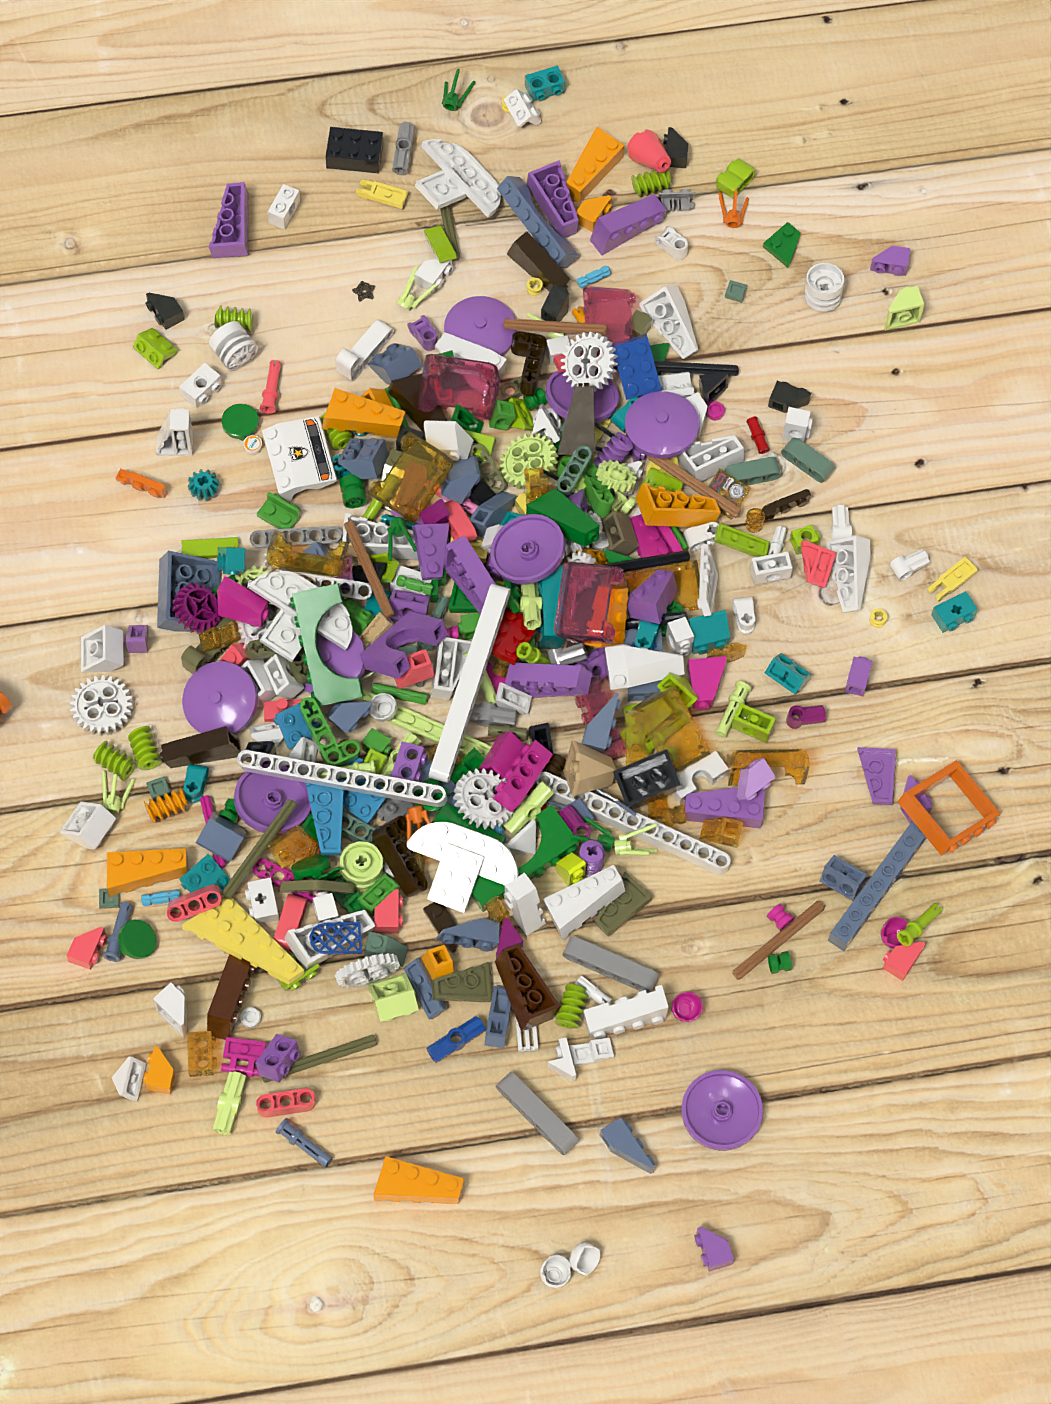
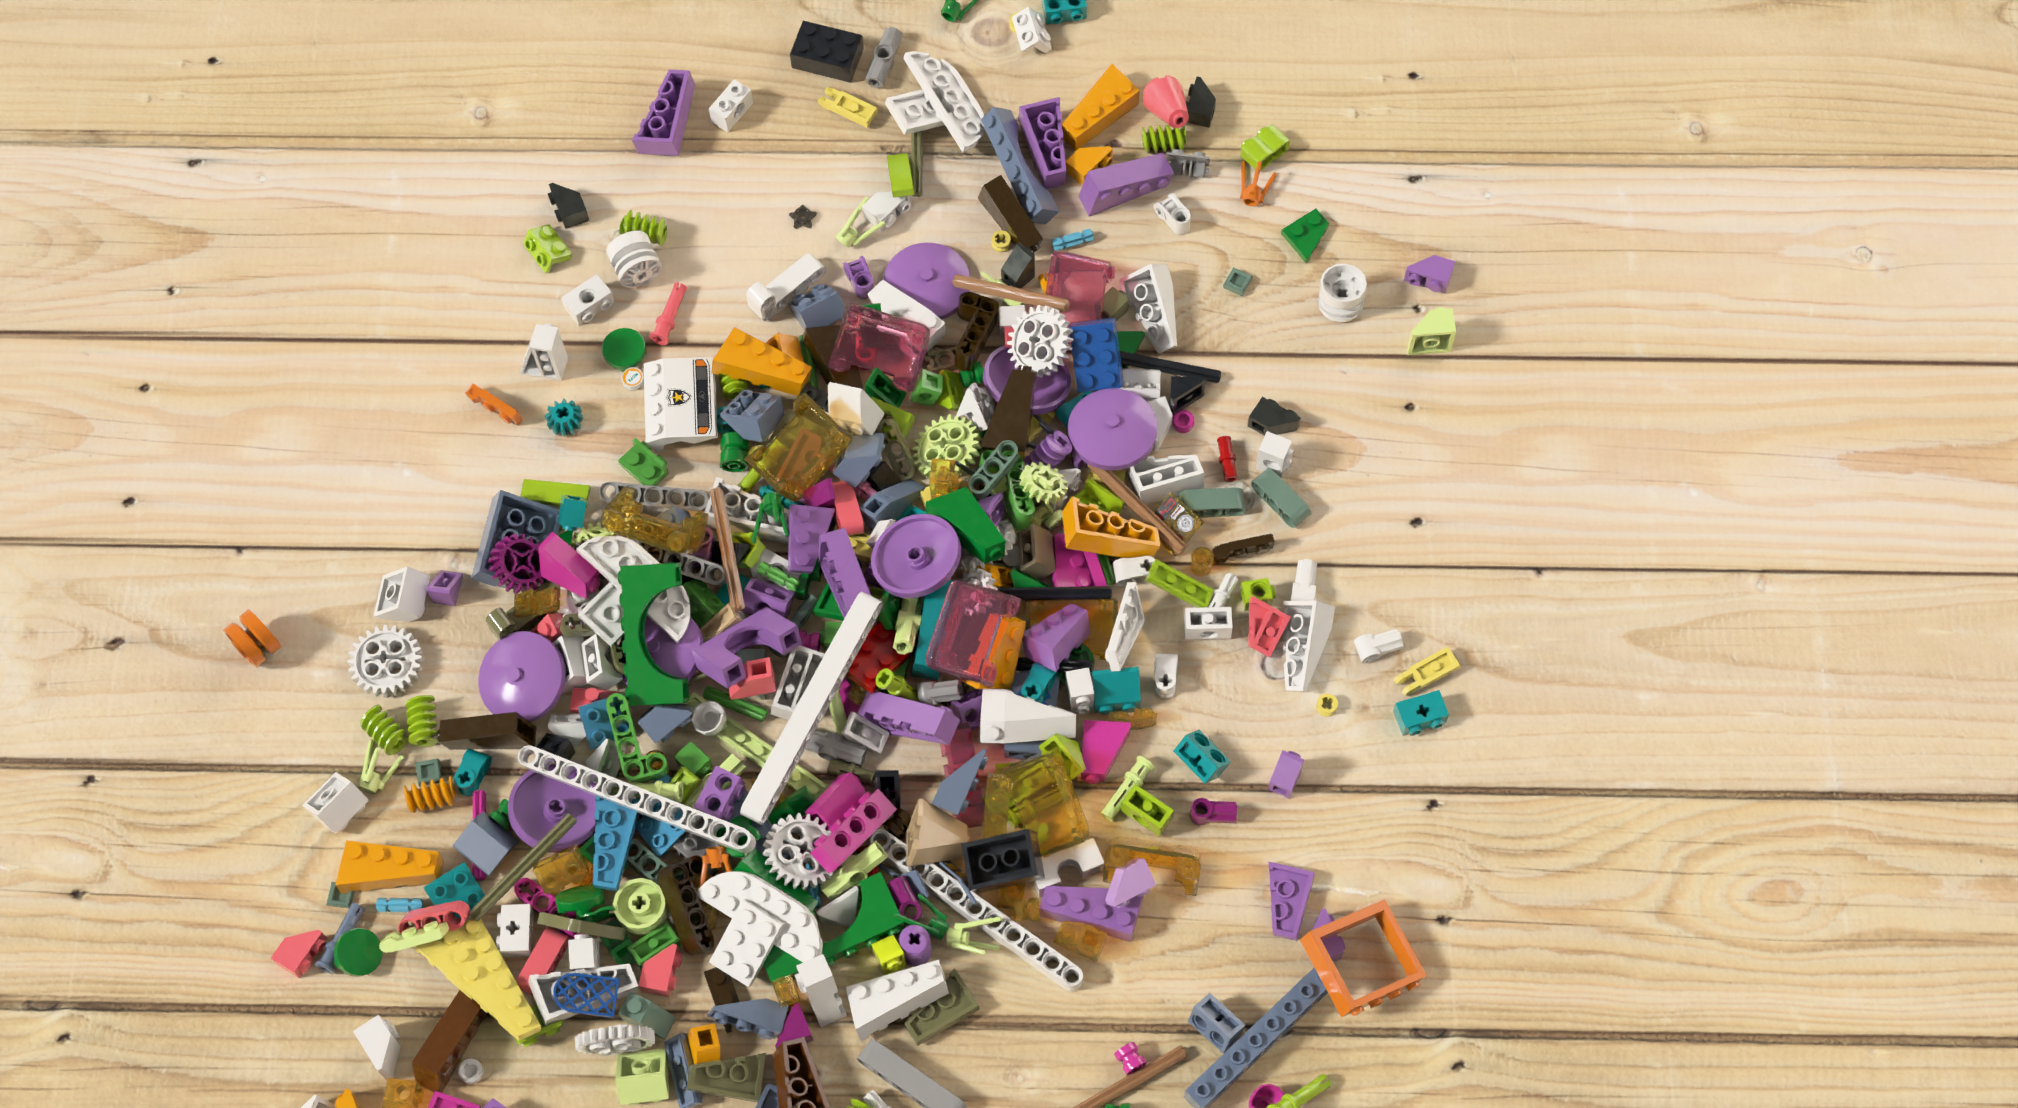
camera: 15 degrees right, 0 degrees up
(181, 919) = (411, 937): none -> yellowish green hinge

